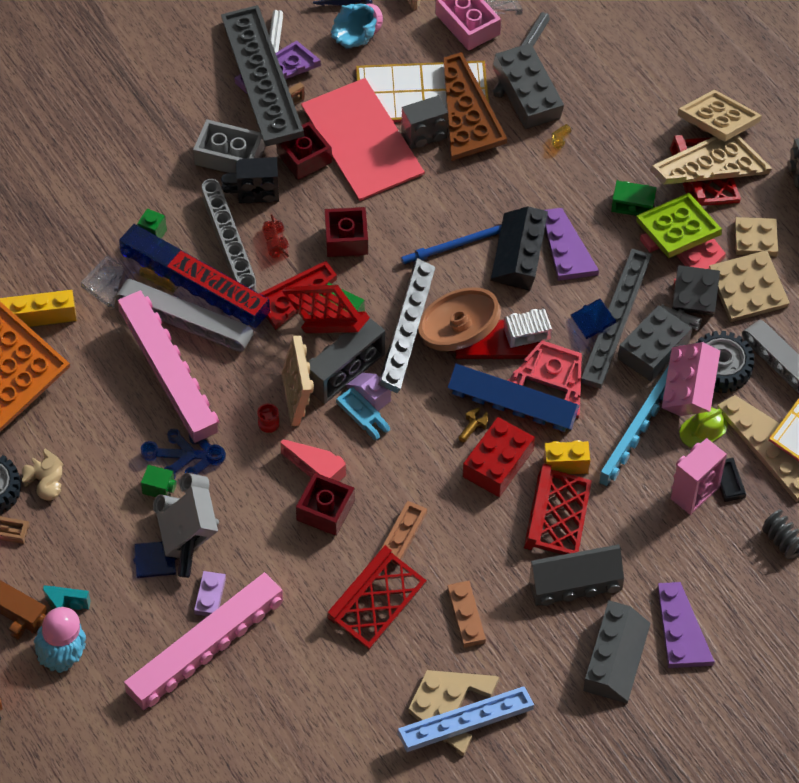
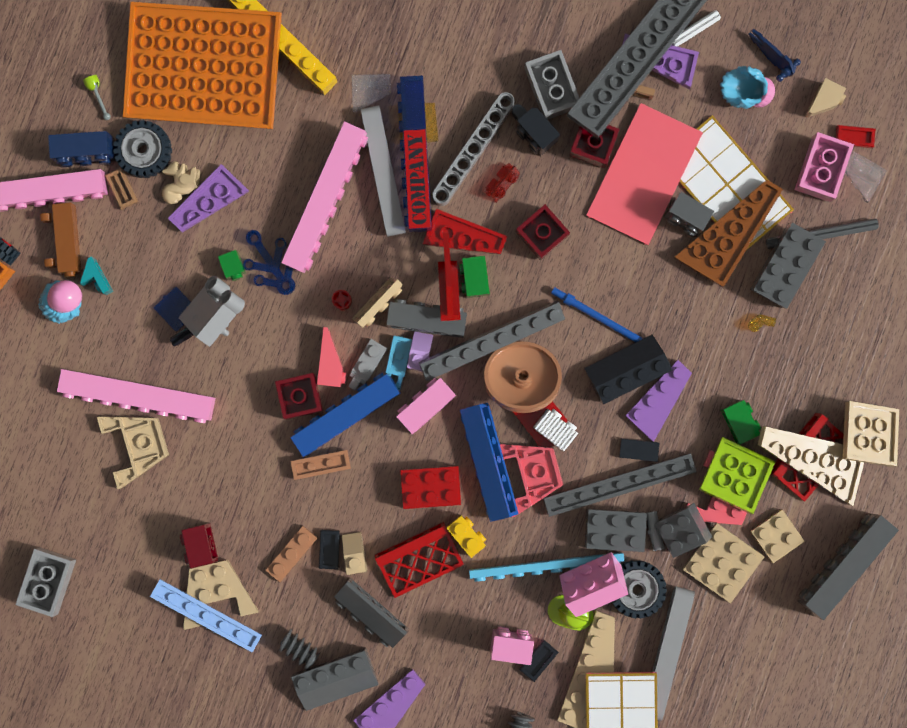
camera: 55 degrees right, 30 degrees up
(81, 462) = (211, 196): none -> medium lavender wing
(153, 223) = (440, 85): green brick -> none
(209, 593) = (176, 368): lavender plate -> none
(254, 666) = (143, 442): none -> tan wing
(342, 438) = (367, 363): none -> light grey hinge
(361, 585) = (257, 470): red fence -> none
(375, 479) = (346, 414): none -> blue brick
(394, 675) = (199, 545): none -> dark red brick
(420, 409) = (425, 405): none -> bright pink brick
(471, 416) = (448, 446): pearl gold bar -> none
(488, 580) = (329, 549): none -> black tile
(510, 559) = (354, 553): none -> tan slope
(562, 661) = (298, 649): none -> dark grey piece
(593, 318) = (604, 469): clear blue piece -> none
(597, 286) = (639, 450): none -> black tile

